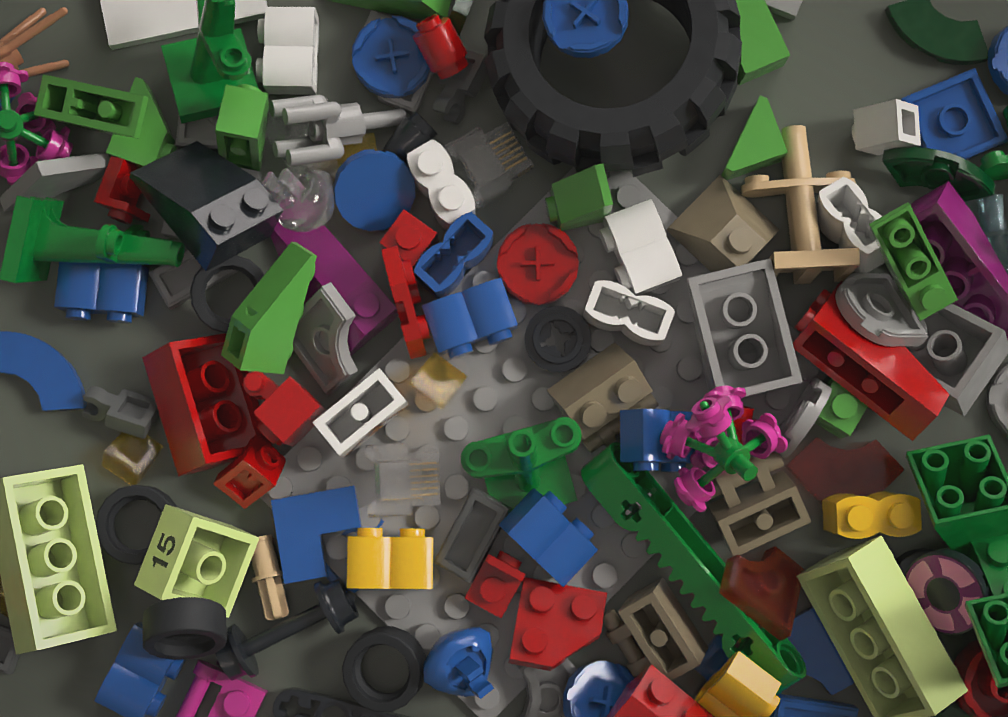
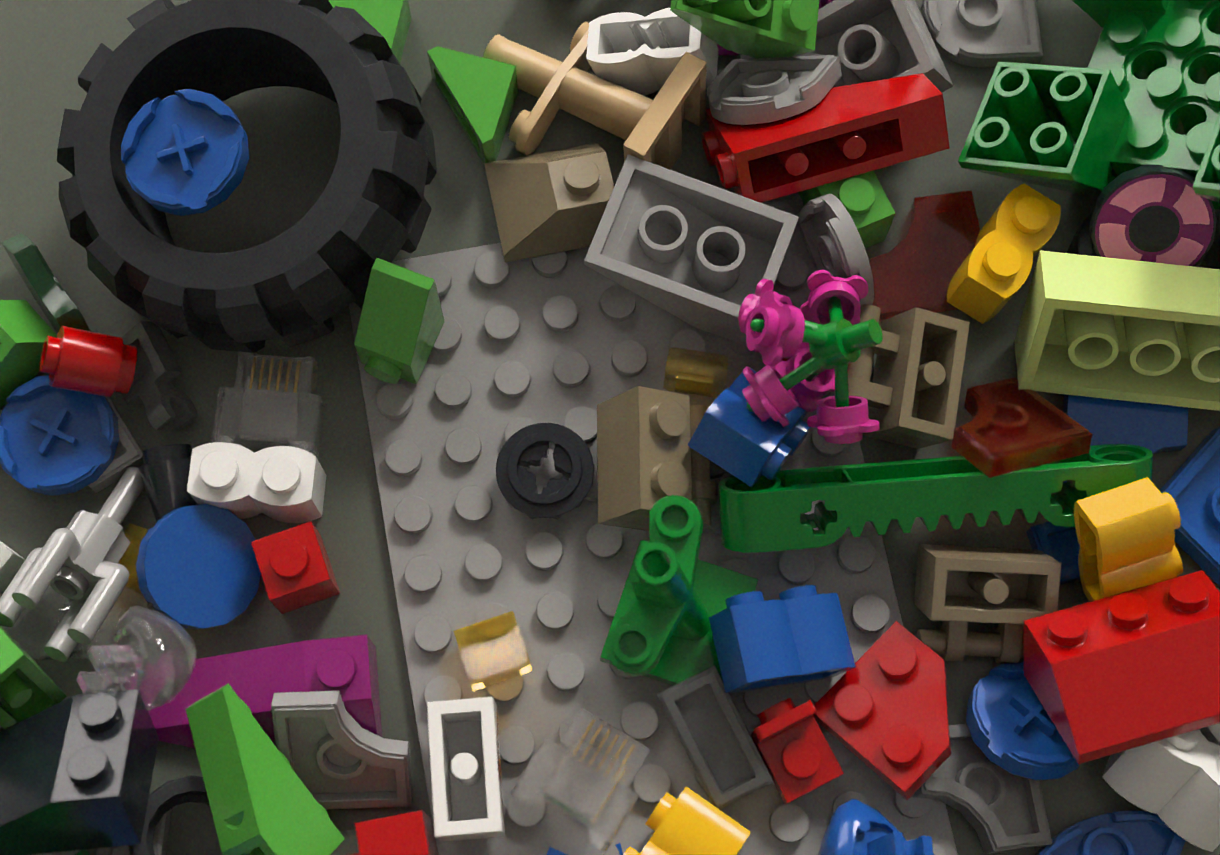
camera: 55 degrees left, 10 degrees down
(405, 295) = (352, 614): red plate -> none
(462, 248) = (353, 535): blue brick -> none
(471, 317) = (444, 554): blue brick -> none
(537, 264) = (436, 434): red tile -> none
(638, 317) = (587, 357): white brick -> none
(641, 248) = (506, 300): white brick -> none
(676, 383) = (695, 372): none -> clear yellow slope

